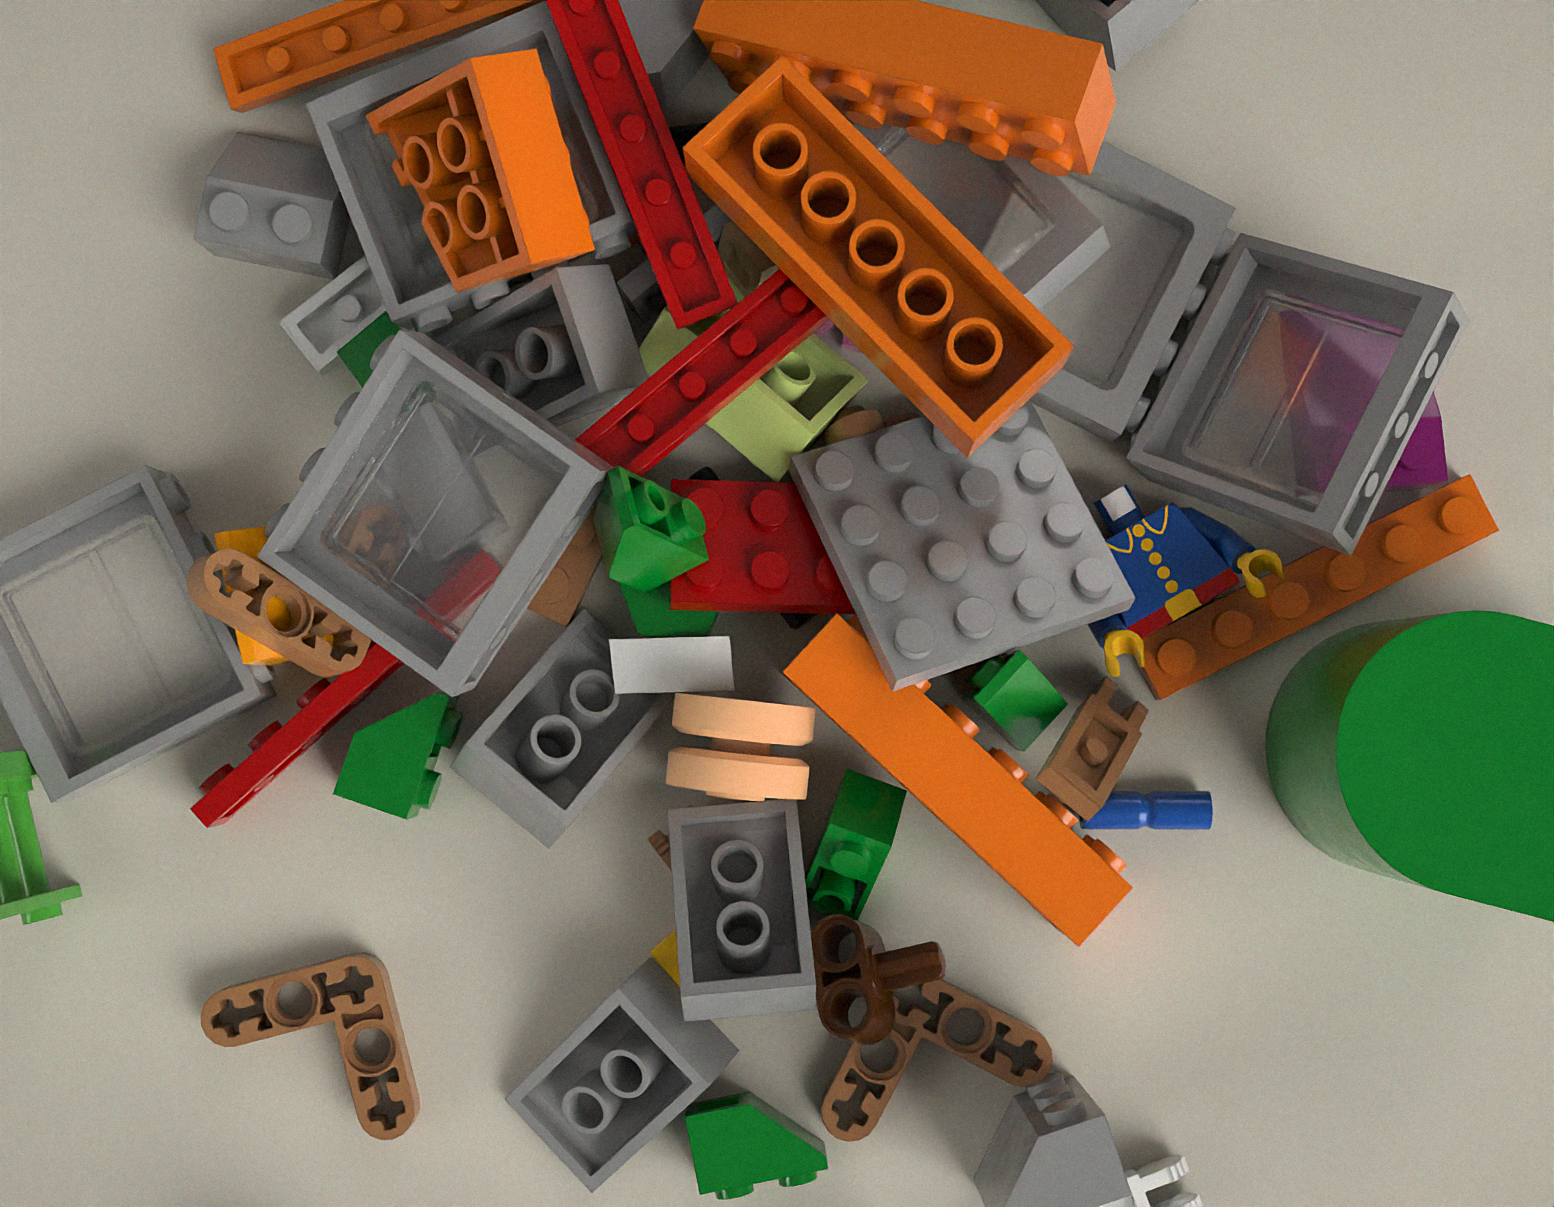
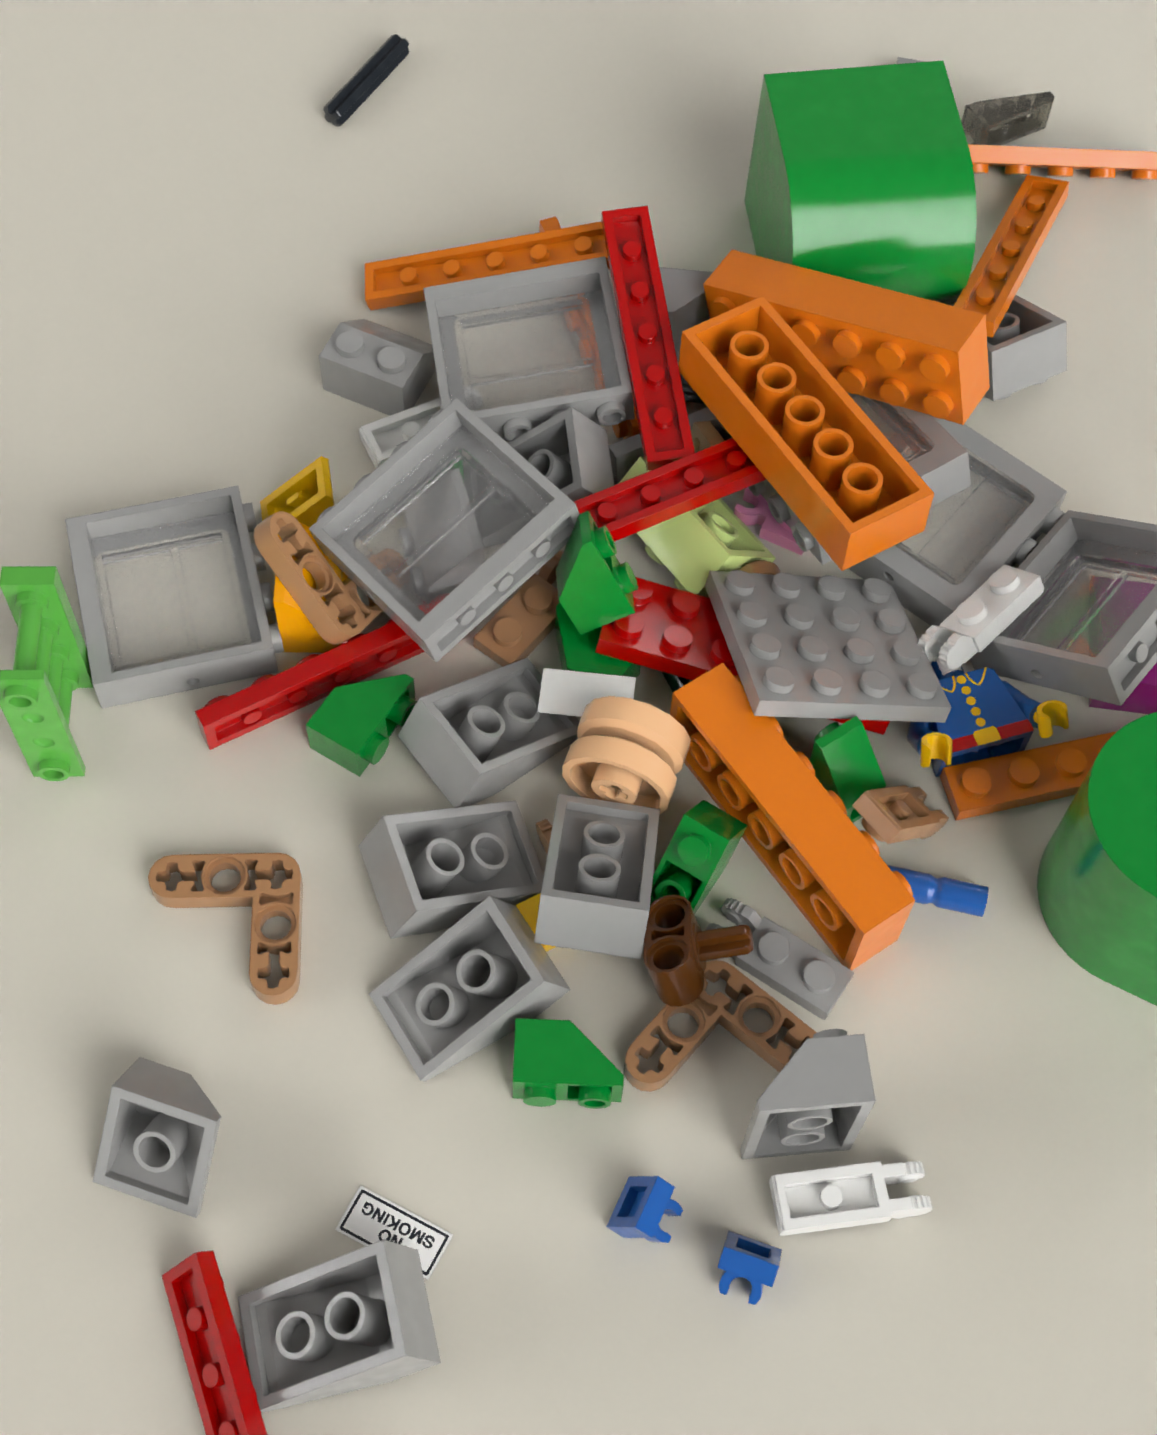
camera: 15 degrees right, 25 degrees down
(238, 461) = (303, 495): none -> yellow slope
(488, 168) = (541, 332): orange wedge -> none
(563, 924) = (448, 861): none -> light grey slope
(983, 942) = (788, 962): none -> light grey hinge
(1152, 438) = (981, 617): none -> white hinge

